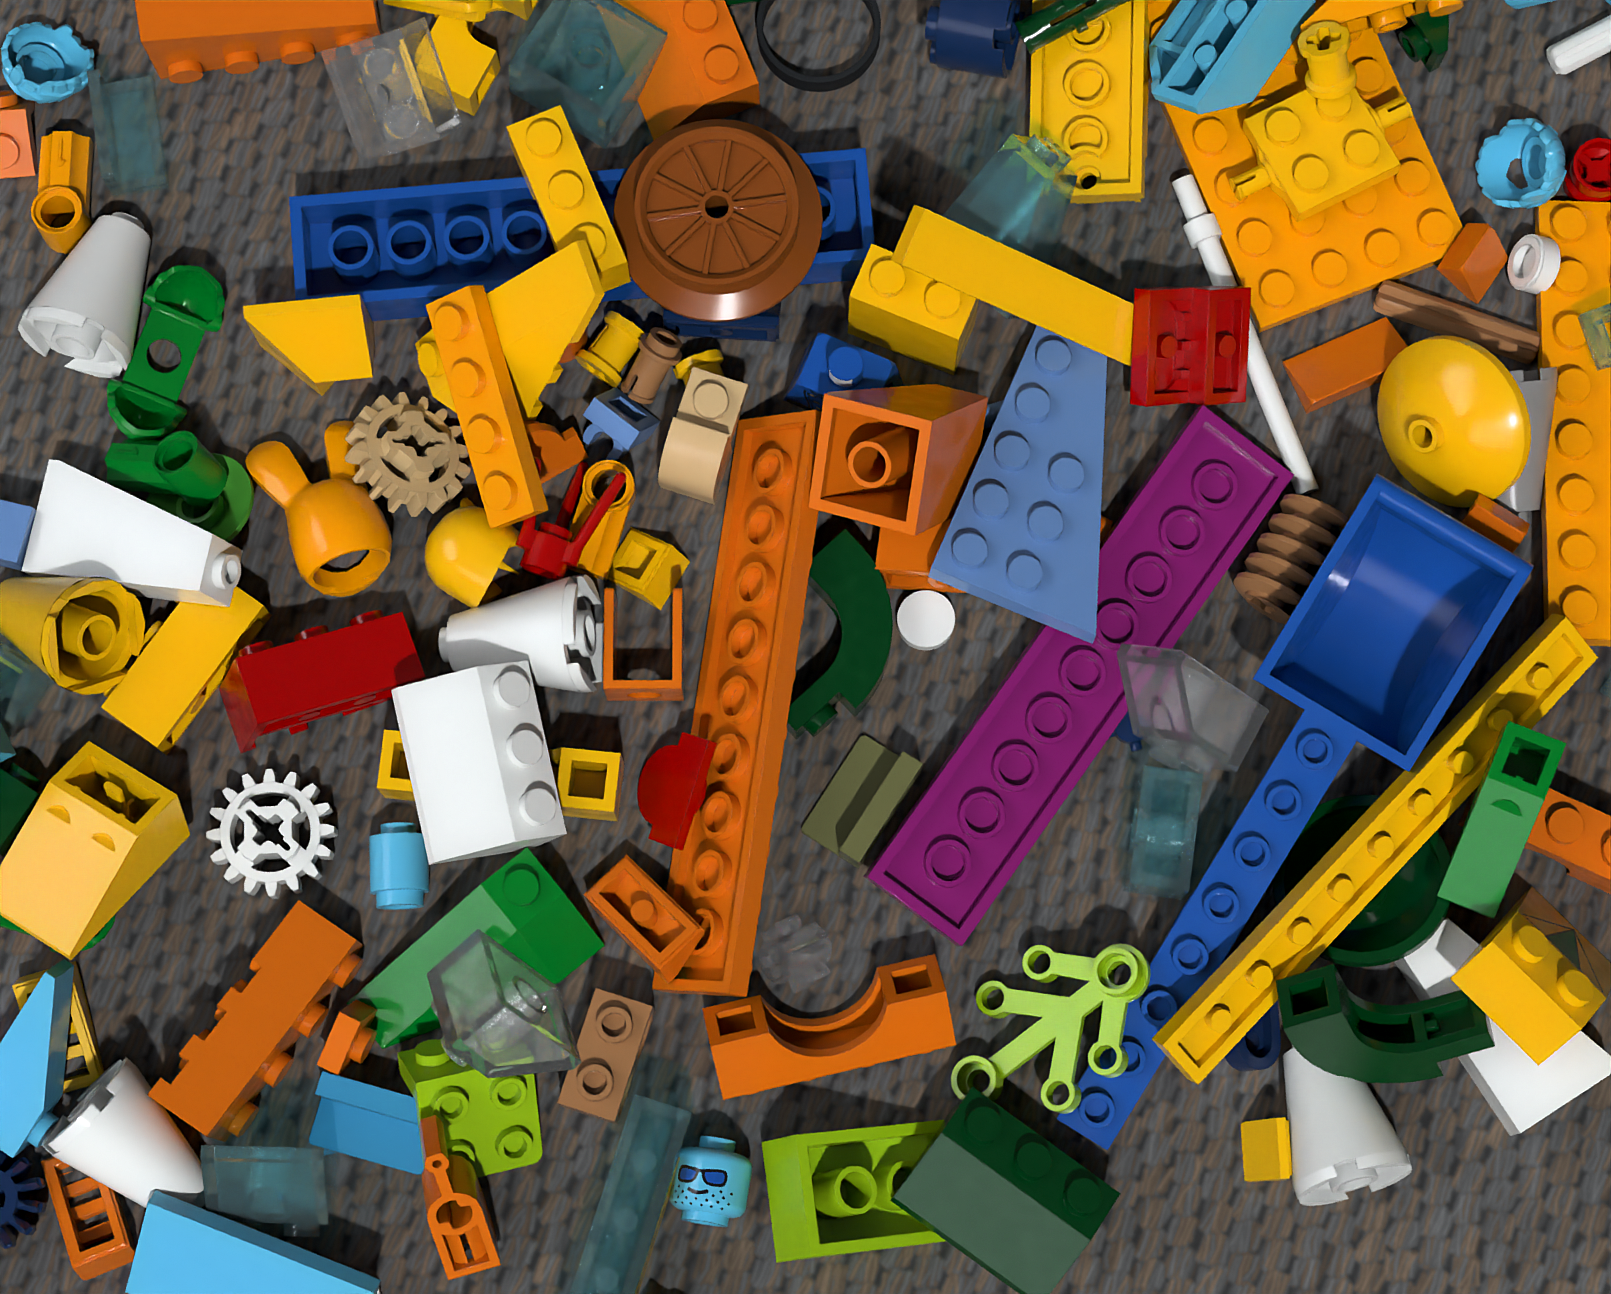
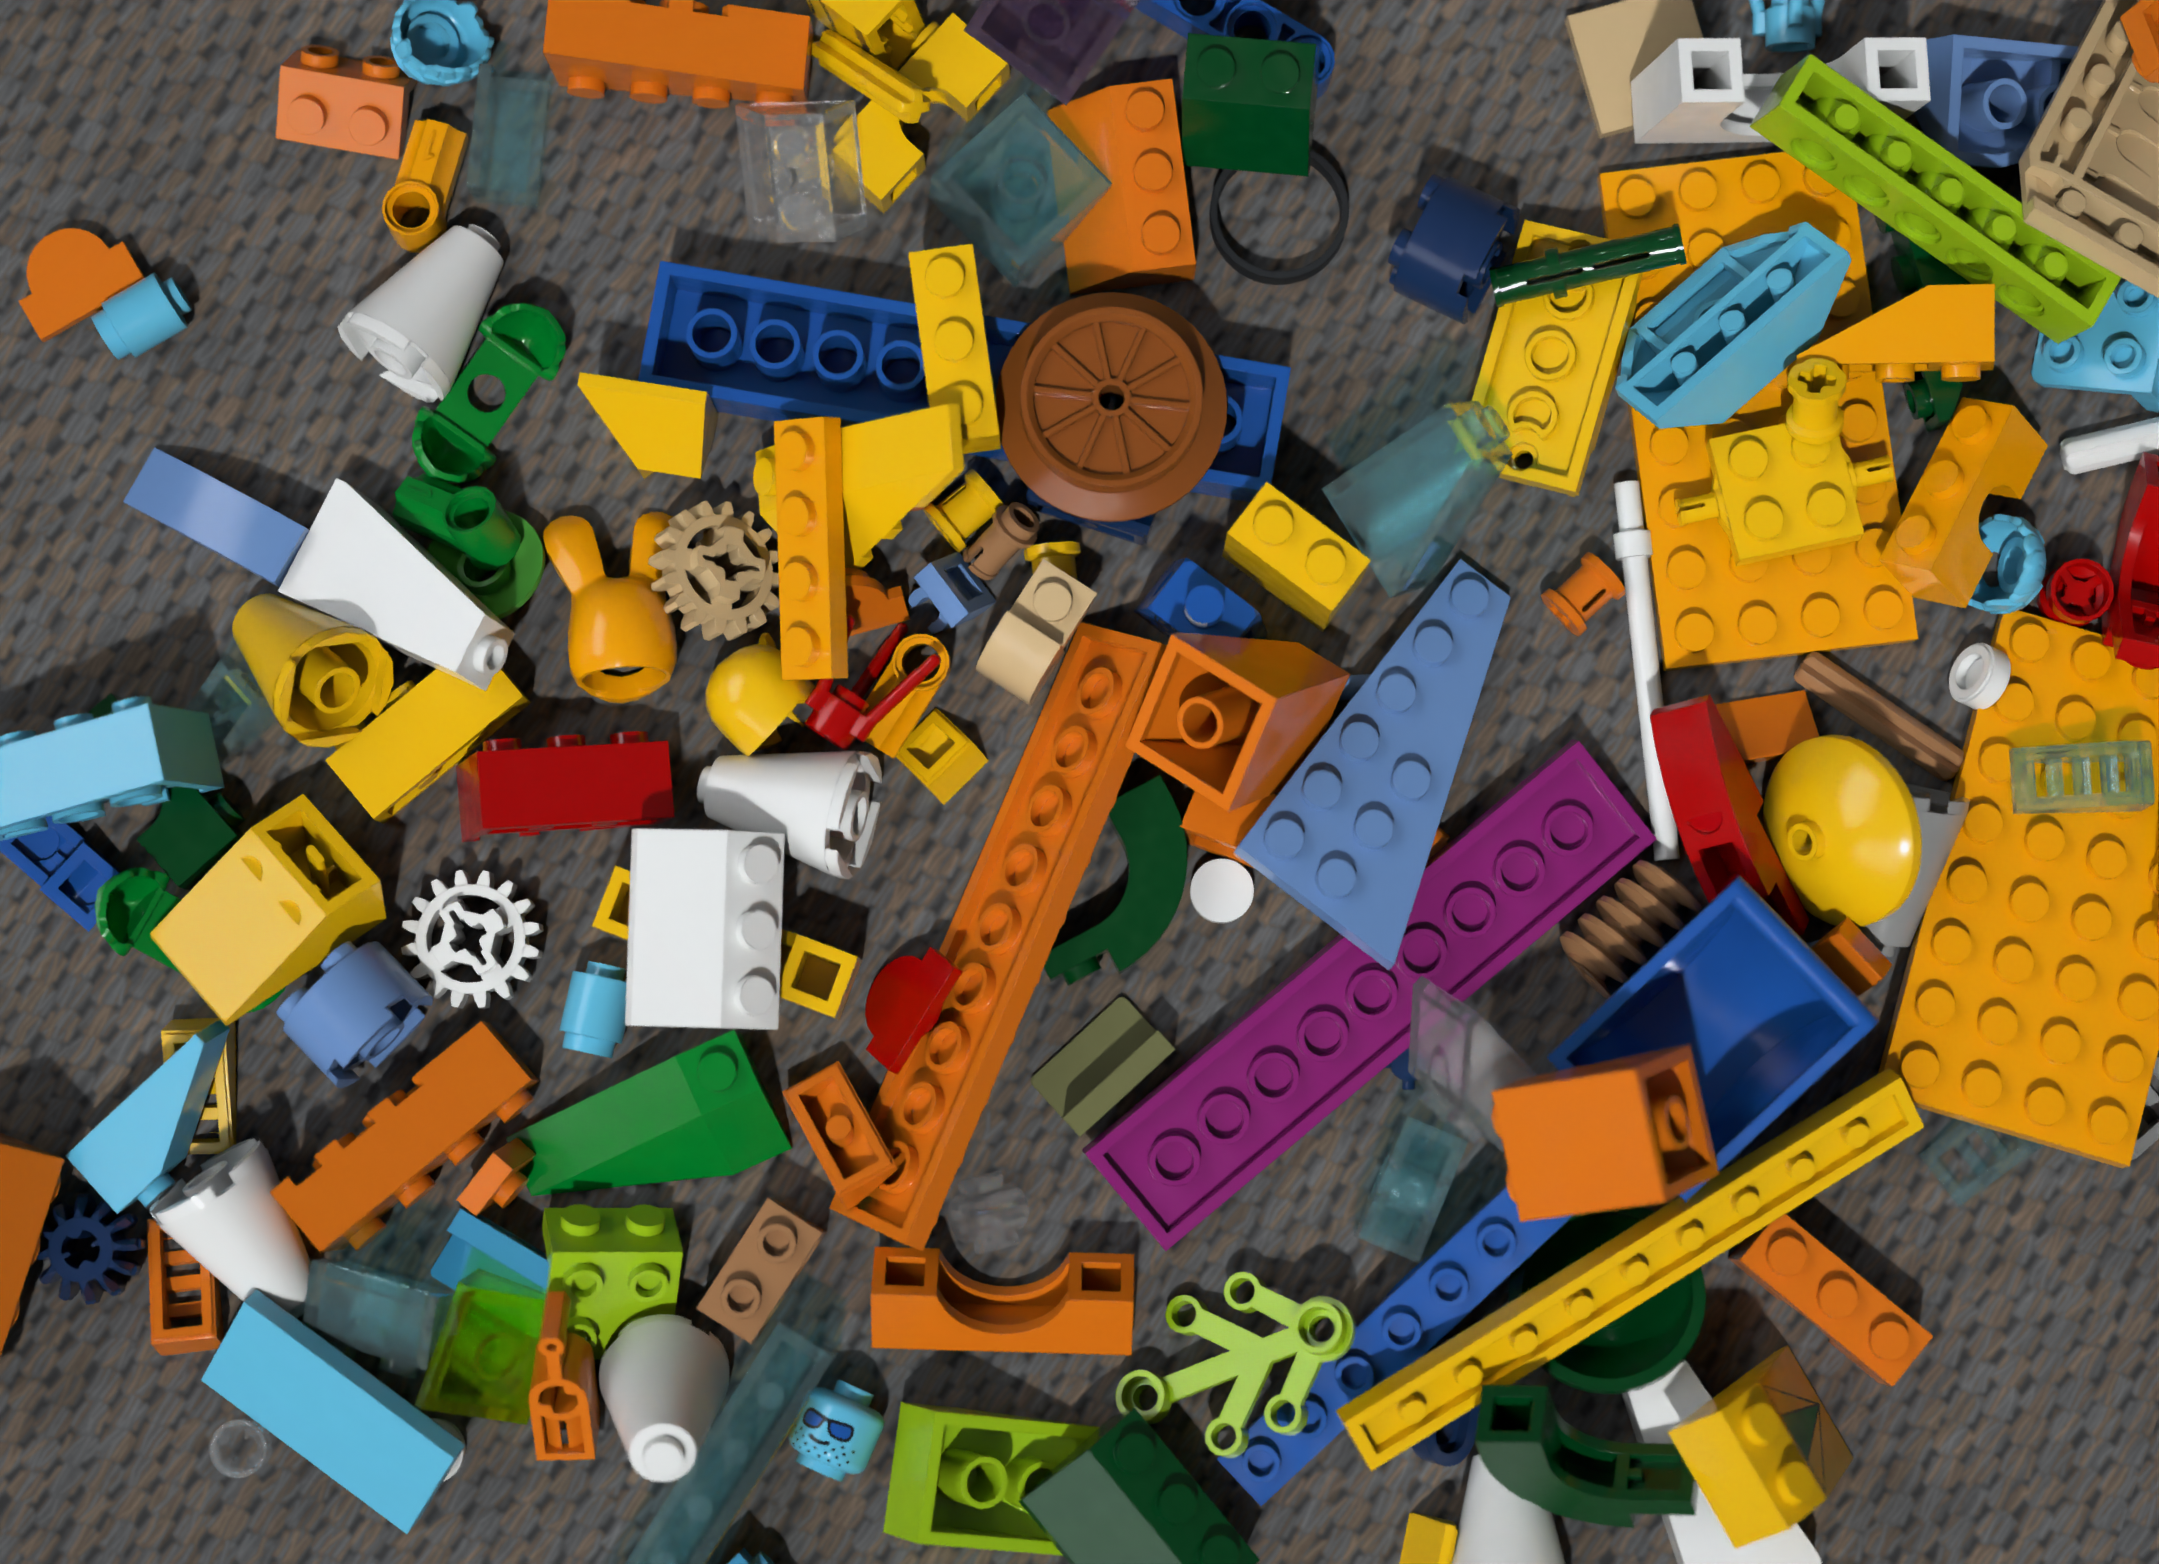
camera: 15 degrees right, 5 degrees up
(182, 921) = (354, 1011): none -> medium blue brick
(378, 1195) = (485, 1351): none -> clear neon green slope
(500, 1012) = (661, 1198): clear slope -> none
(546, 1183) = (663, 1392): none -> white cone
(643, 689) = (867, 876): orange piece -> none
(1016, 283) = (1431, 580): yellow tile -> none
(1177, 269) = (1583, 593): none -> orange bush
(1190, 345) = (1583, 670): red slope -> none
(1321, 727) = (1605, 1135): none -> orange slope
(1336, 422) = (1719, 807): none -> red slope
(1464, 155) = (1937, 538): none -> light orange arch
(1474, 260) = (1915, 655): orange slope -> none
(1501, 818) = (1768, 1278): green slope -> none

